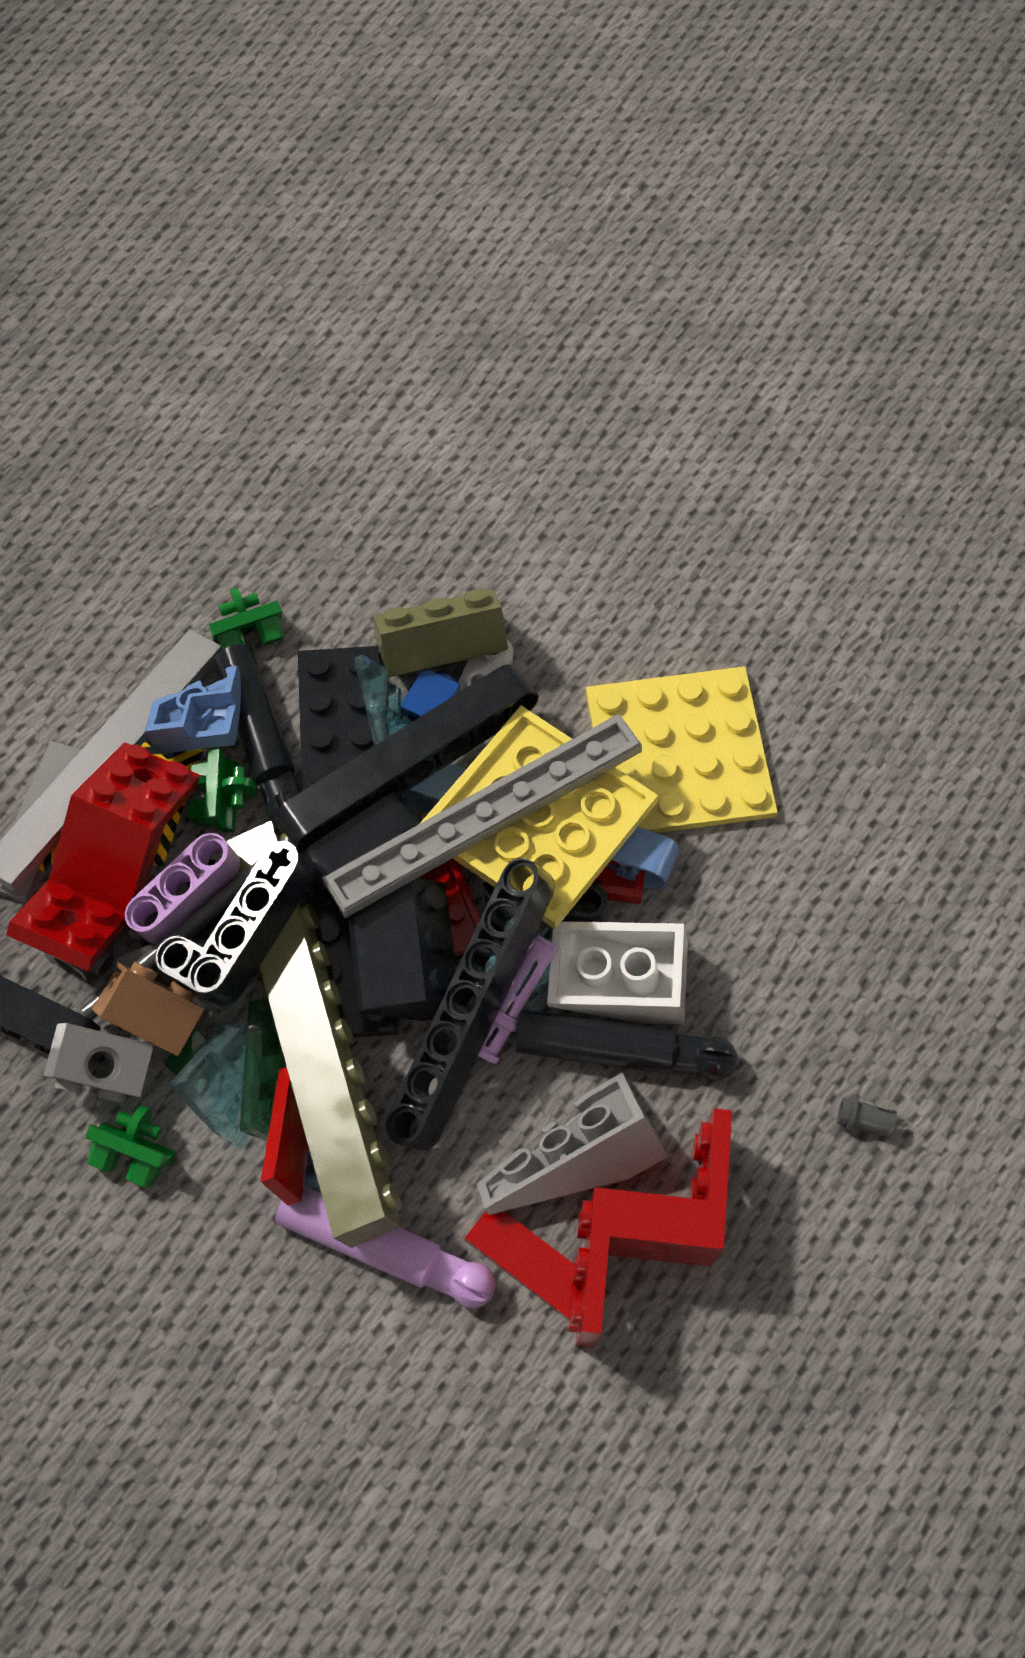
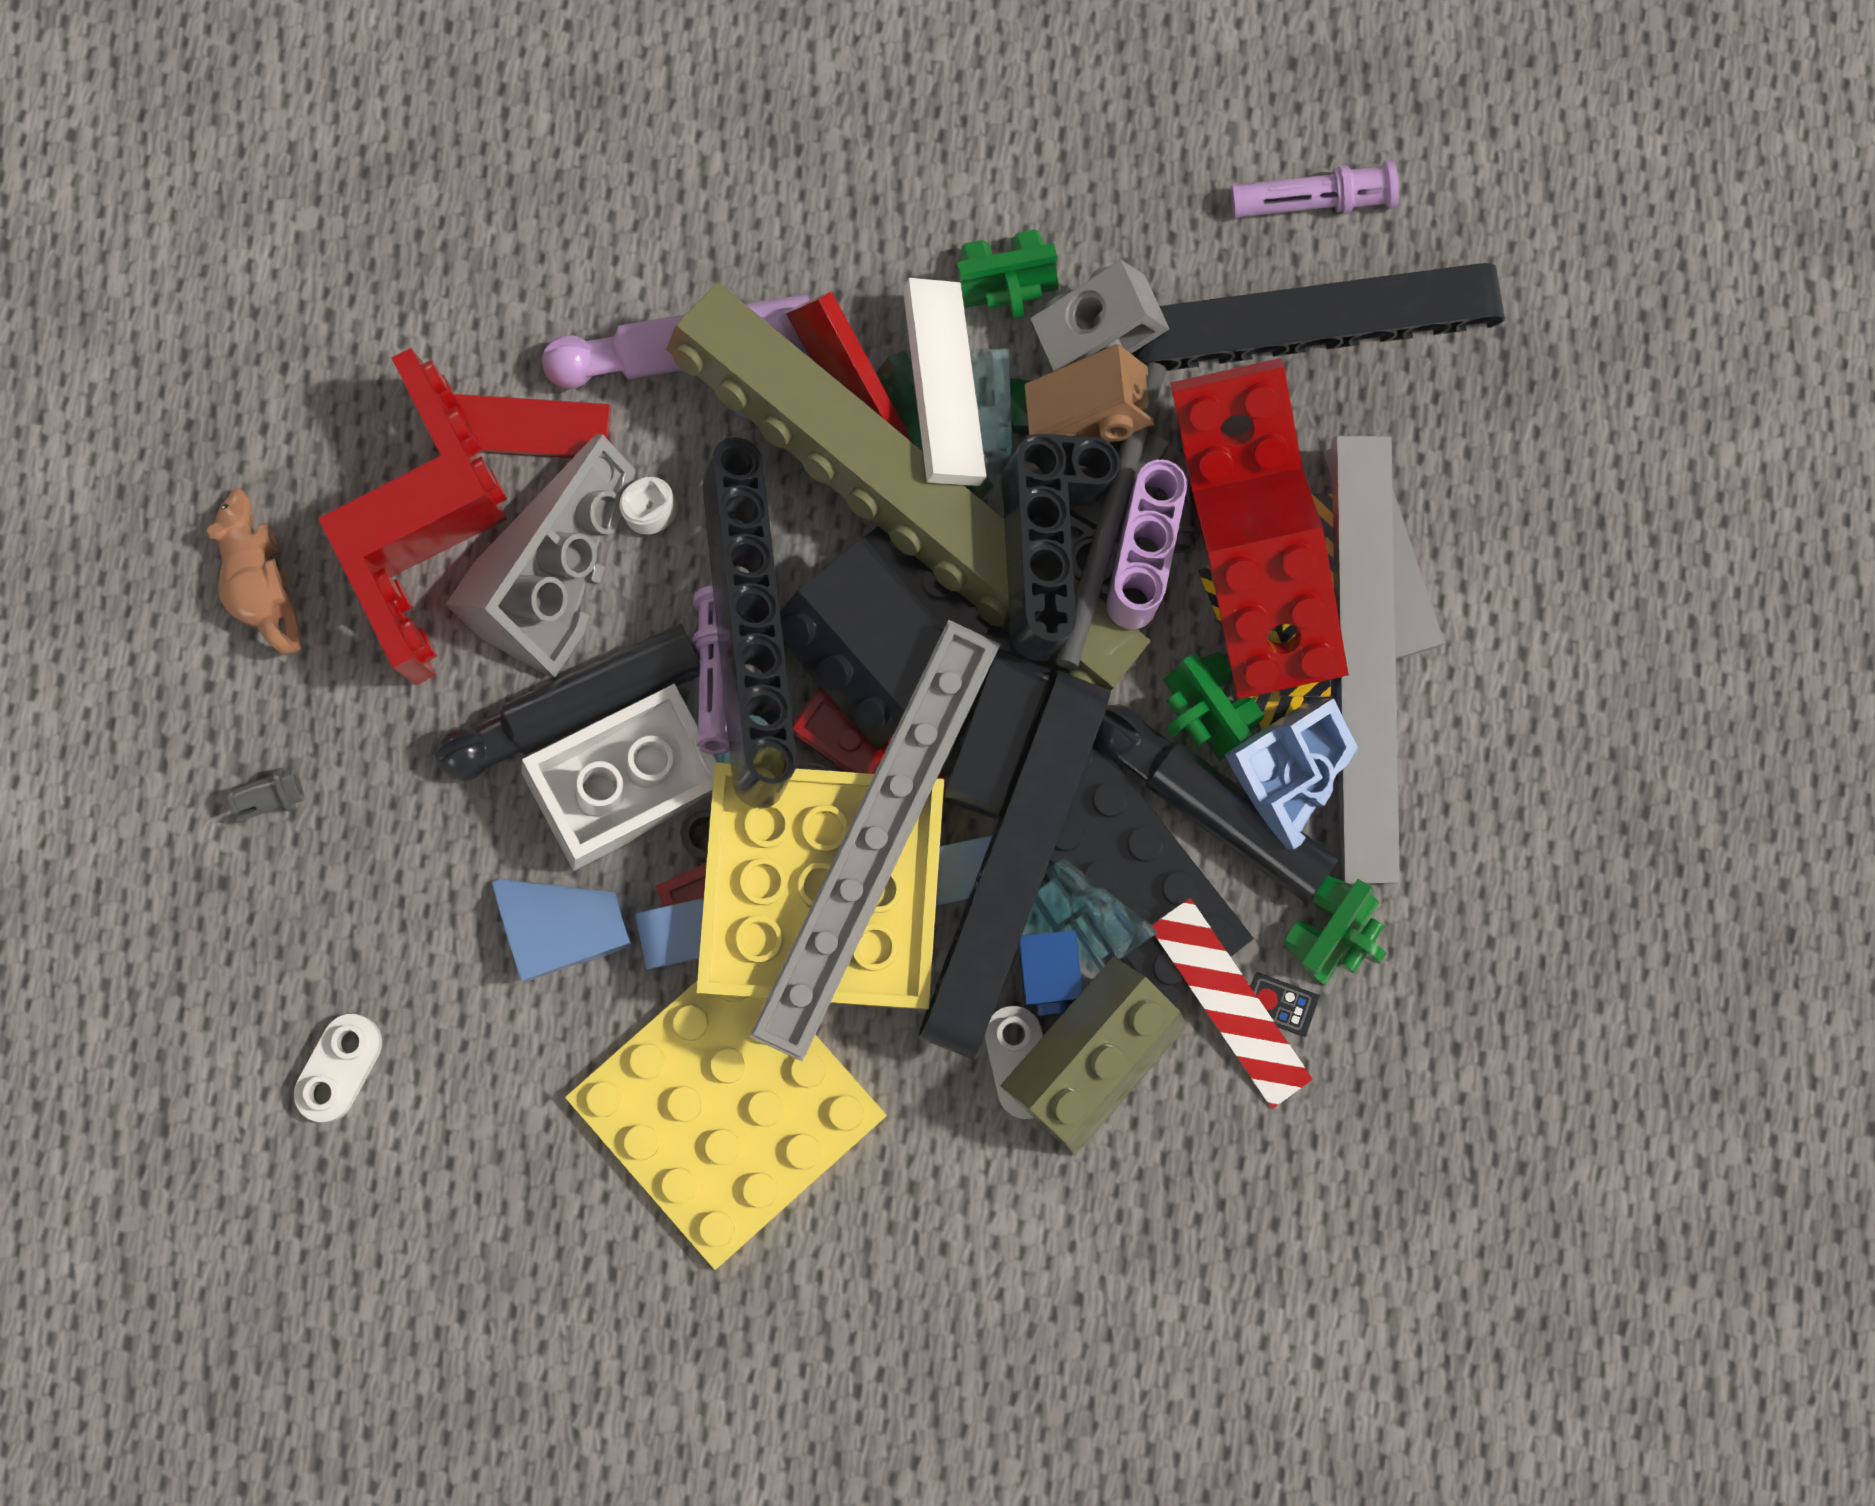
camera: 145 degrees right, 15 degrees up
(229, 1084) = (944, 382): none -> white tile
(309, 613) = (1286, 1004): none -> sticker
(338, 625) = (1231, 1003): none -> sticker
(484, 1148) = (648, 505): none -> white tile
(718, 913) = (559, 925): none -> medium blue slope
(797, 1270) = (249, 579): none -> nougat animal
(915, 917) = (340, 1070): none -> white plate

